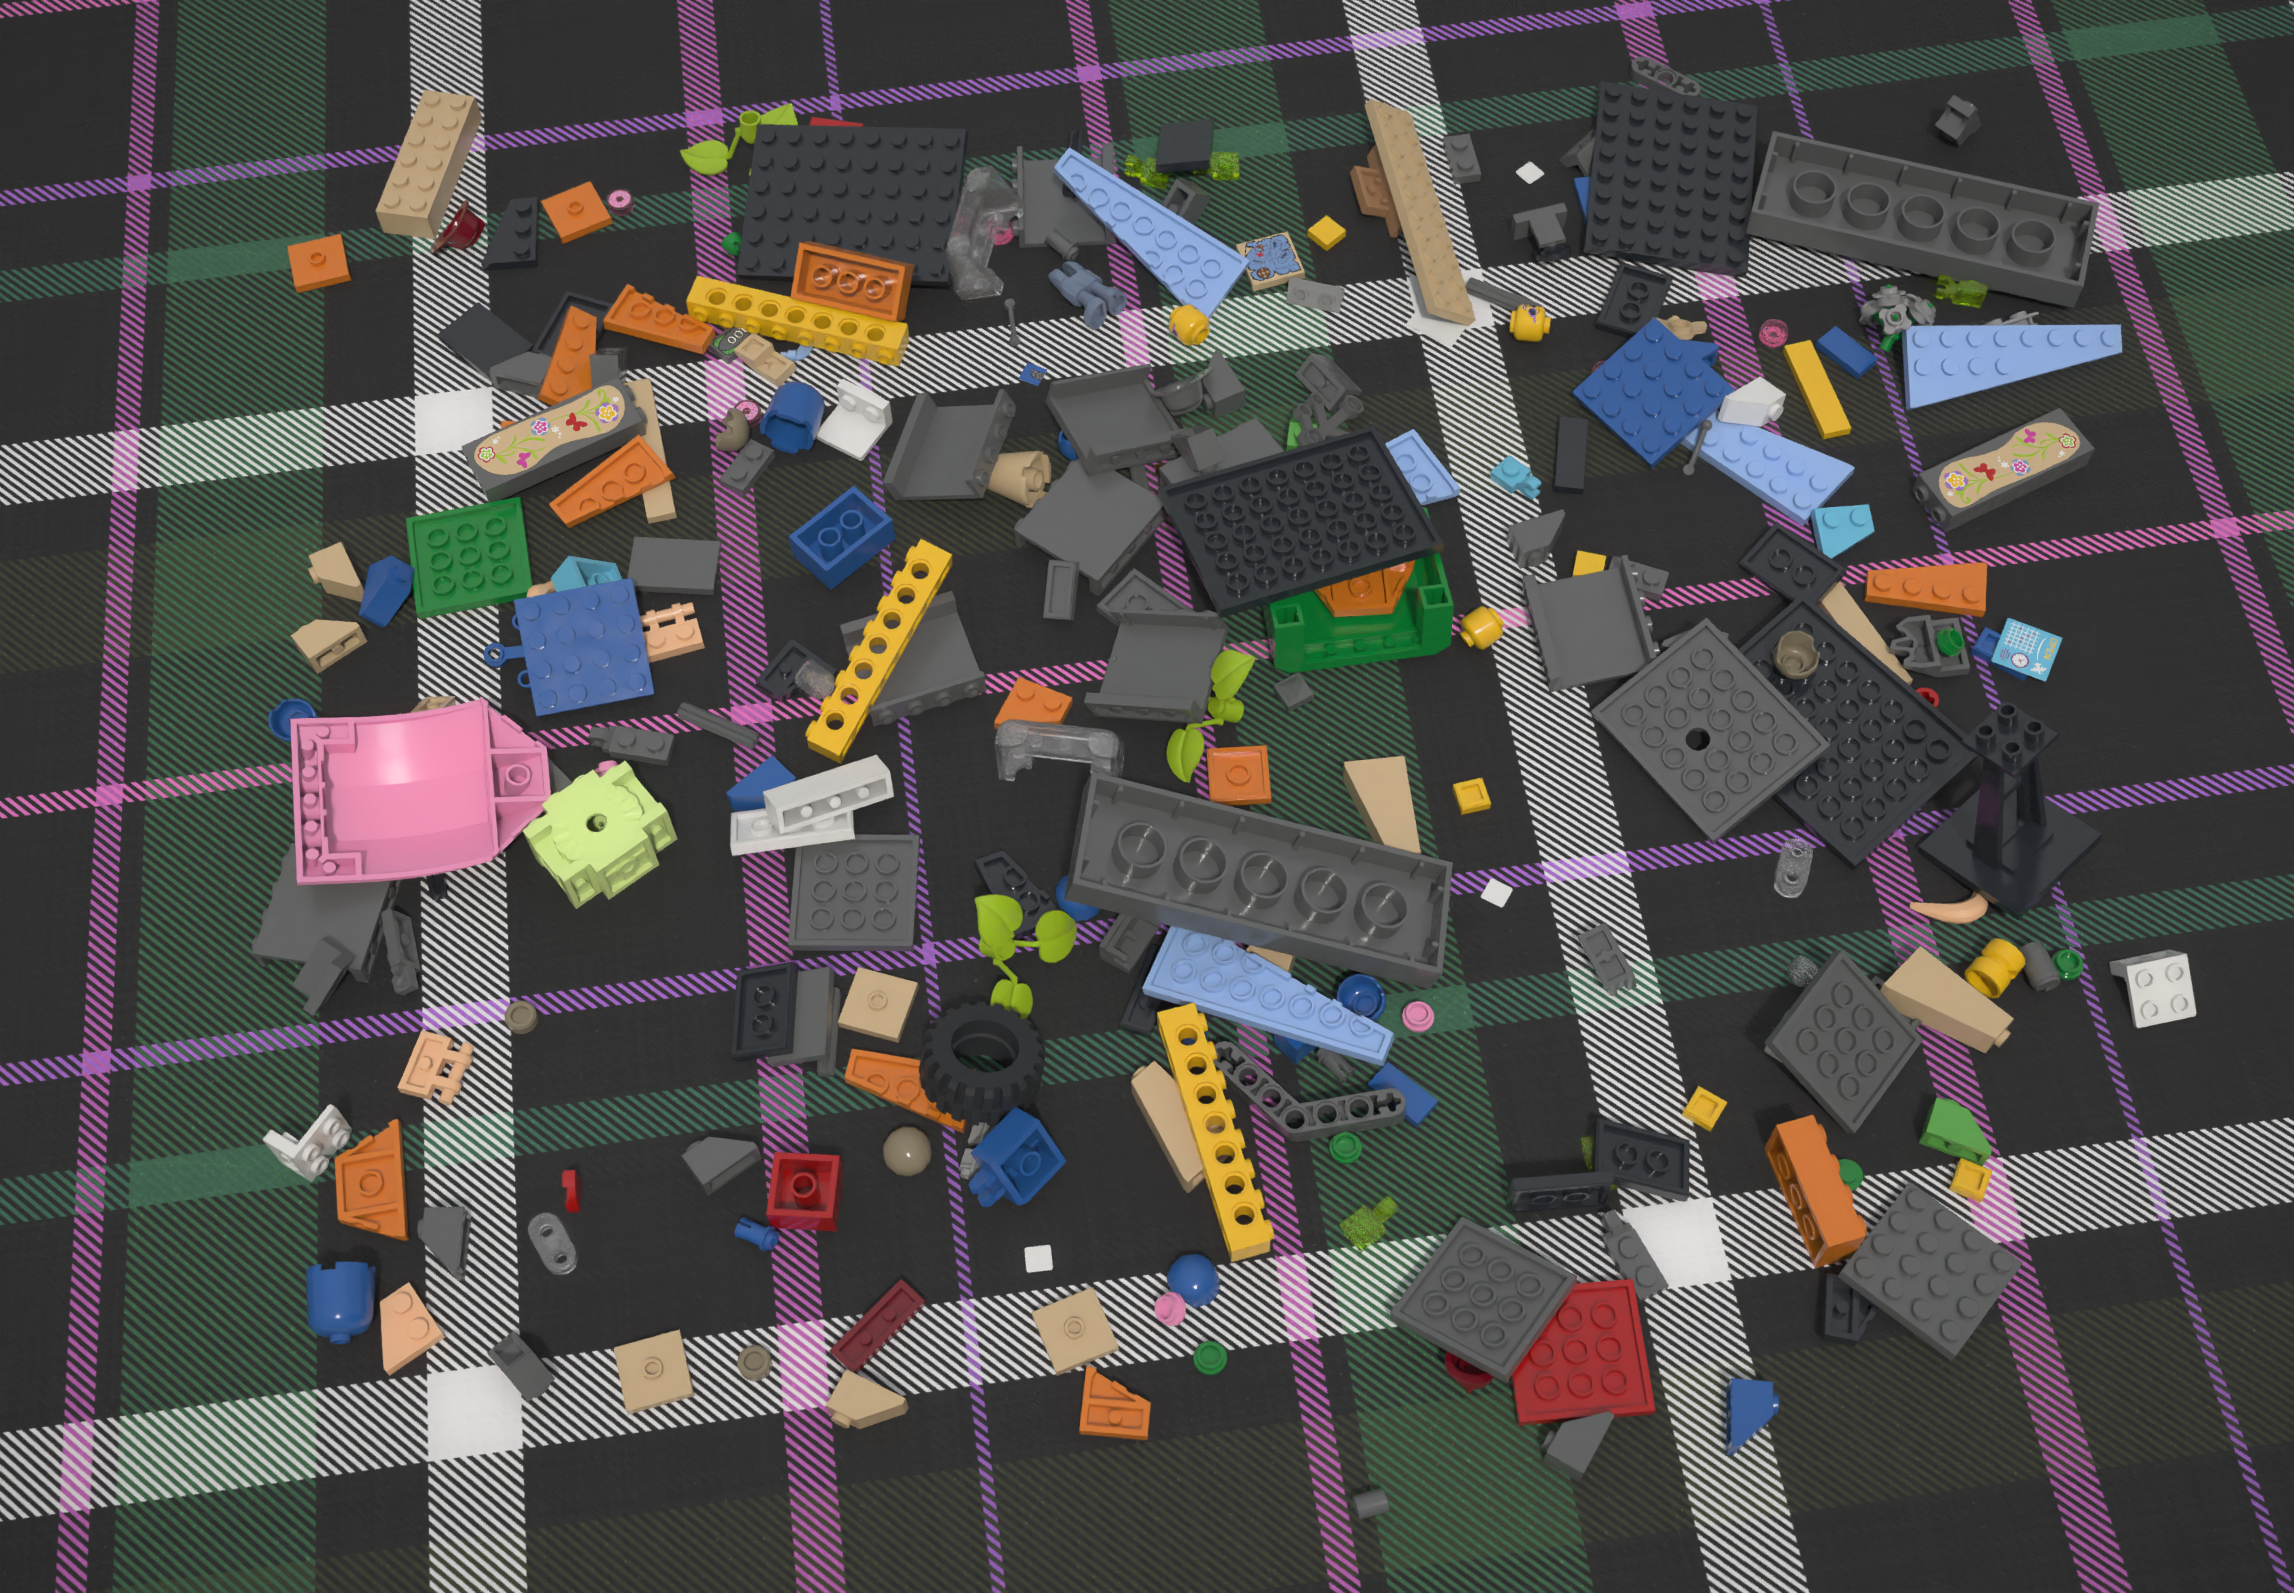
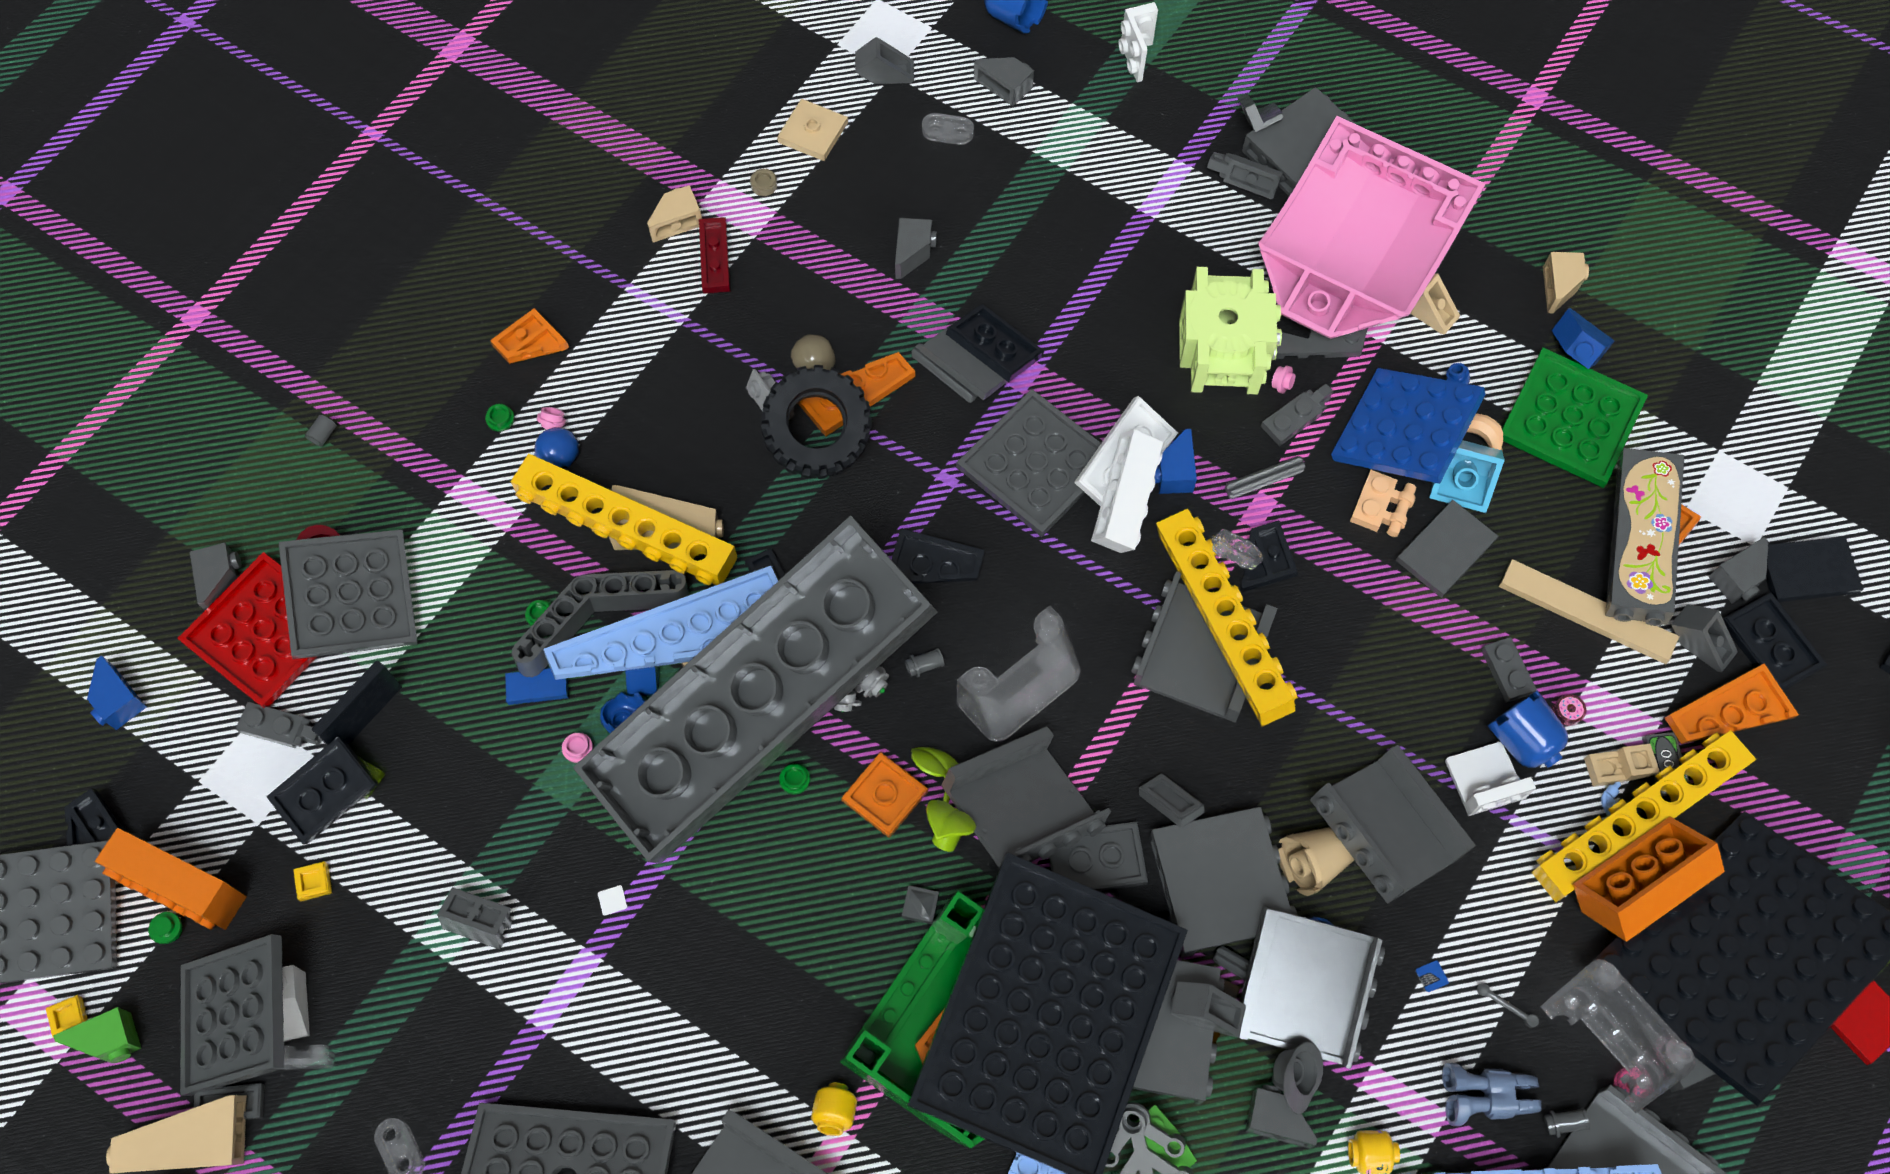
camera: 130 degrees right, 5 degrees up
(289, 709) = (1502, 217): blue hair -> none
(336, 572) = (1629, 323): tan slope -> none
(373, 1184) = (1082, 65): orange wing -> none
(406, 1328) = (970, 31): light nougat wing -> none
(426, 1066) = (1141, 137): light nougat plate -> none
(521, 1017) = (1131, 212): dark tan tile -> none
(570, 363) = (1709, 586): orange wing -> none
(573, 1183) = (974, 160): red tile -> none
(616, 480) = (1568, 558): orange wing -> none
(732, 244) = (1788, 831): green hinge -> none
(736, 433) = (1552, 678): dark tan hair -> none
(757, 1234) = (842, 235): blue pin -> none
(805, 1191) = (838, 271): red brick -> none
(842, 537) = (1366, 676): blue brick -> none
(878, 1004) = (936, 416): tan plate -> none
(996, 922) = (894, 486): lime plant -> none
(1014, 1160) = (733, 397): blue hinge -> none
(1034, 703) = (1086, 702): orange wing -> none
(1038, 1258) = (667, 378): white sticker -> none
(1075, 1331) = (598, 359): tan plate -> none
(1365, 1226) = (477, 581): clear neon green plate -> none
(1384, 800) = (755, 878): tan slope -> none
(1471, 796) = (703, 957): yellow tile -> none

